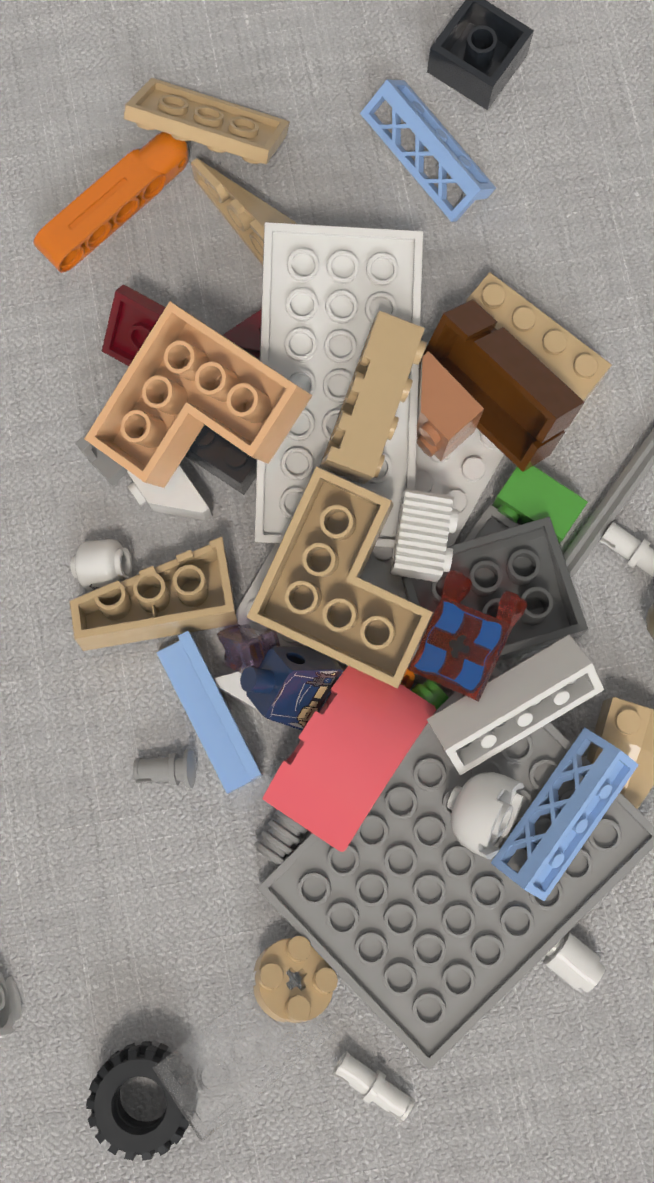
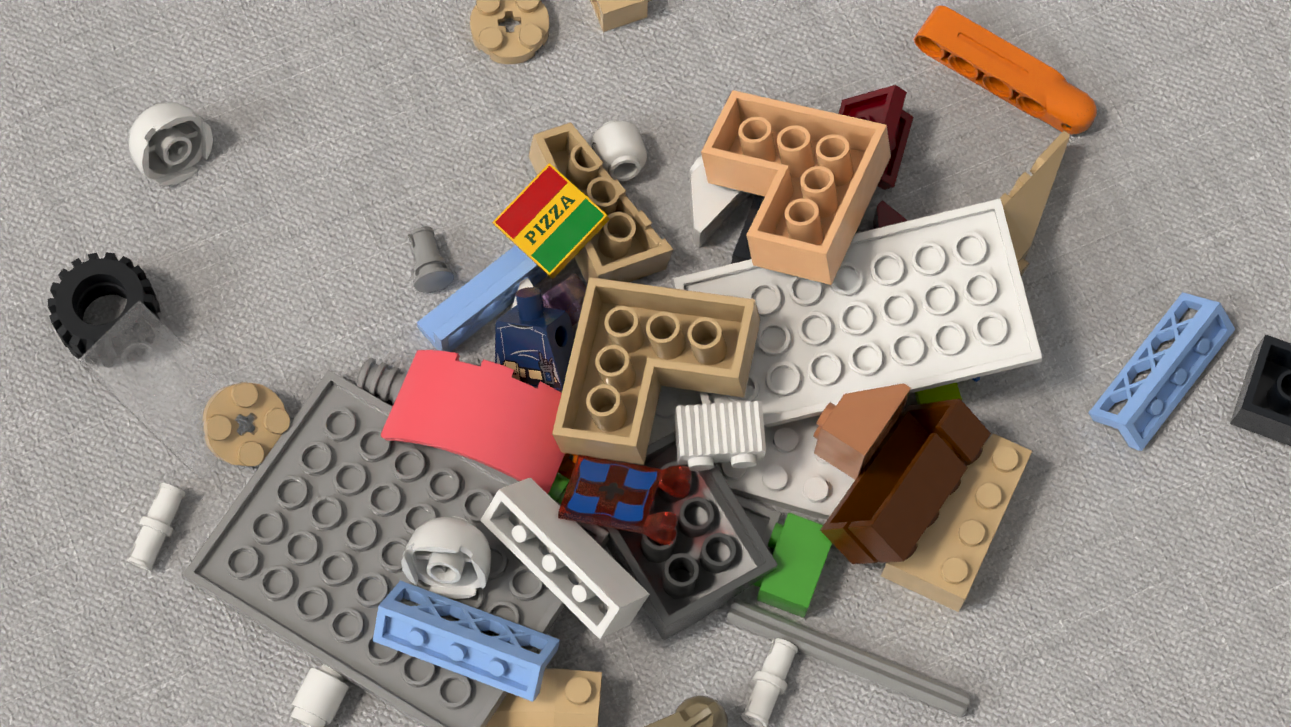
camera: 75 degrees right, 10 degrees down
(169, 642) = (551, 220): none -> tile
(206, 121) = (1117, 138): tan plate -> none
(373, 398) = (844, 346): tan wedge -> none

